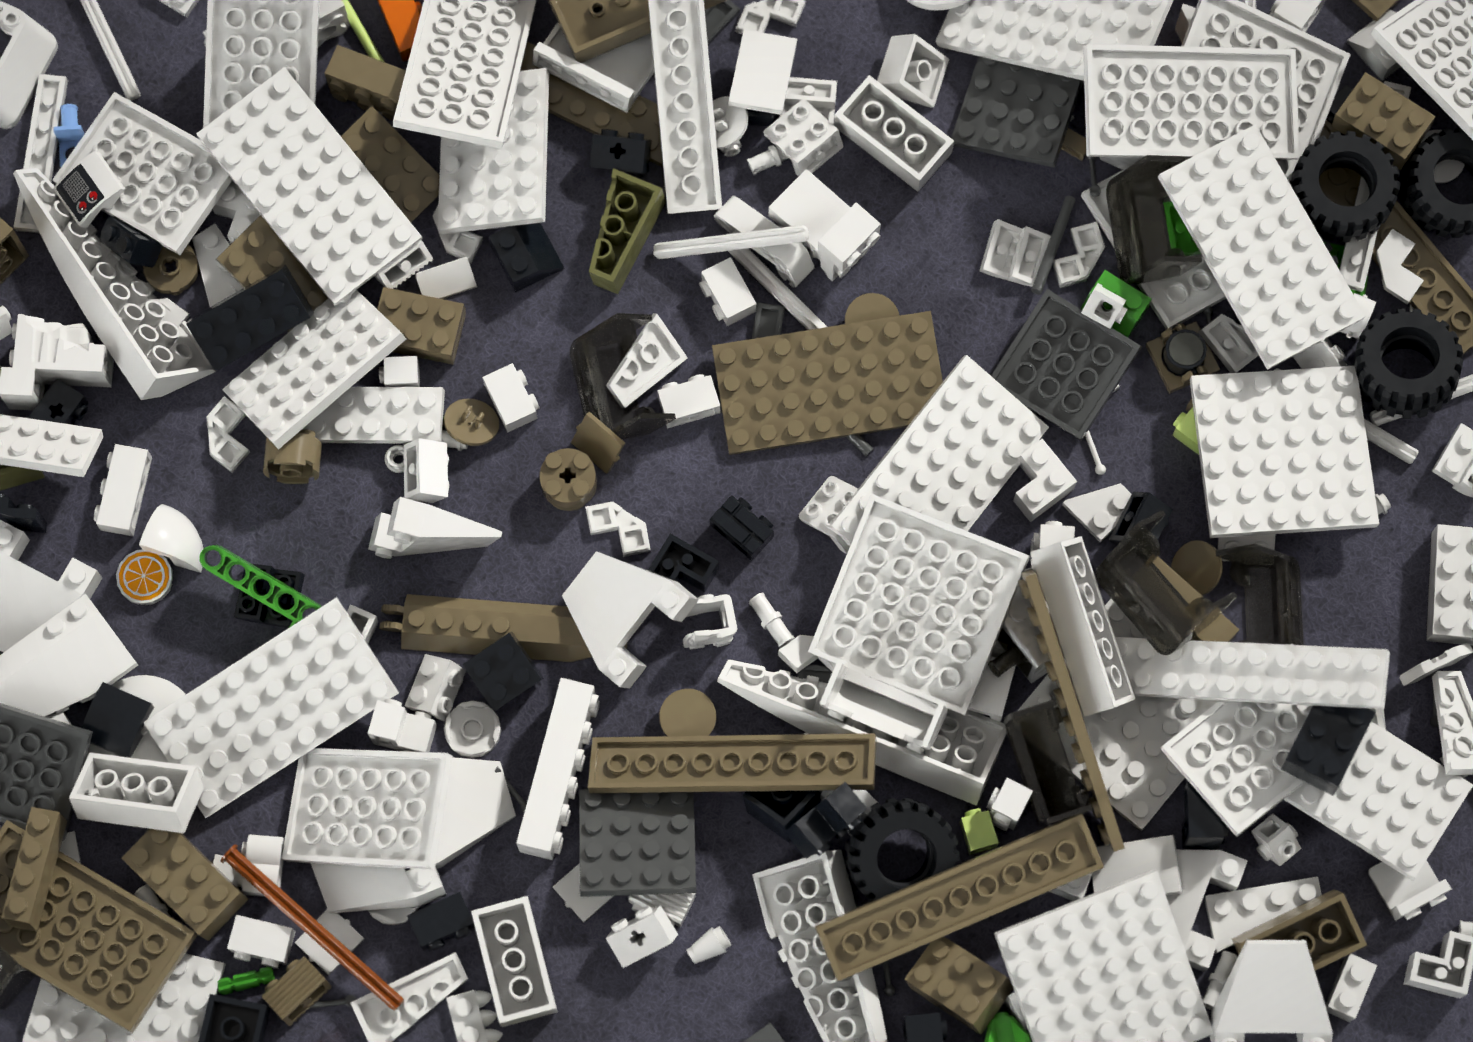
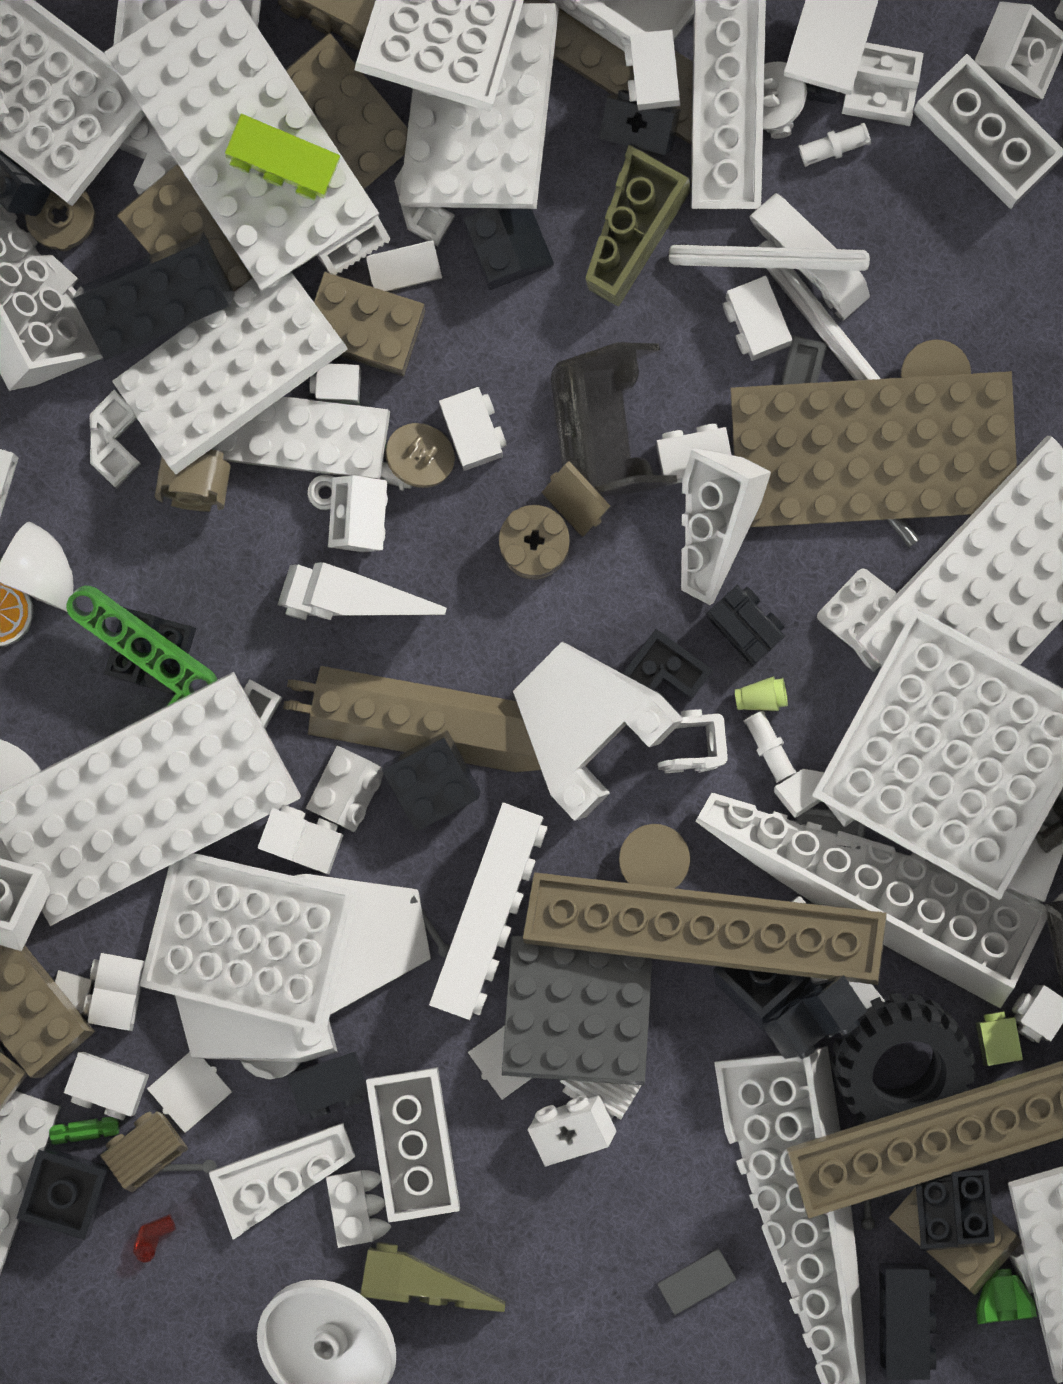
camera: 10 degrees right, 10 degrees up
(216, 279) = (110, 195): white wing -> none
(312, 928) = (170, 1079): dark orange axle -> none
(342, 198) = (281, 157): none -> lime brick
(466, 735) = (398, 845): white tile -> none
(611, 517) = (585, 594): white tile -> none
(626, 107) = (654, 70): none -> white brick
(646, 362) = (645, 402): white wing -> none
(709, 945) = (653, 1146): white cone -> none
(712, 437) = (720, 507): none -> white wedge
(761, 581) = (762, 695): none -> yellowish green cone
(805, 137) = (874, 125): white bracket -> none
(836, 232) = (903, 256): white brick -> none
(883, 708) = (902, 881): white windscreen -> none
(955, 963) = (955, 1211): none -> black slope

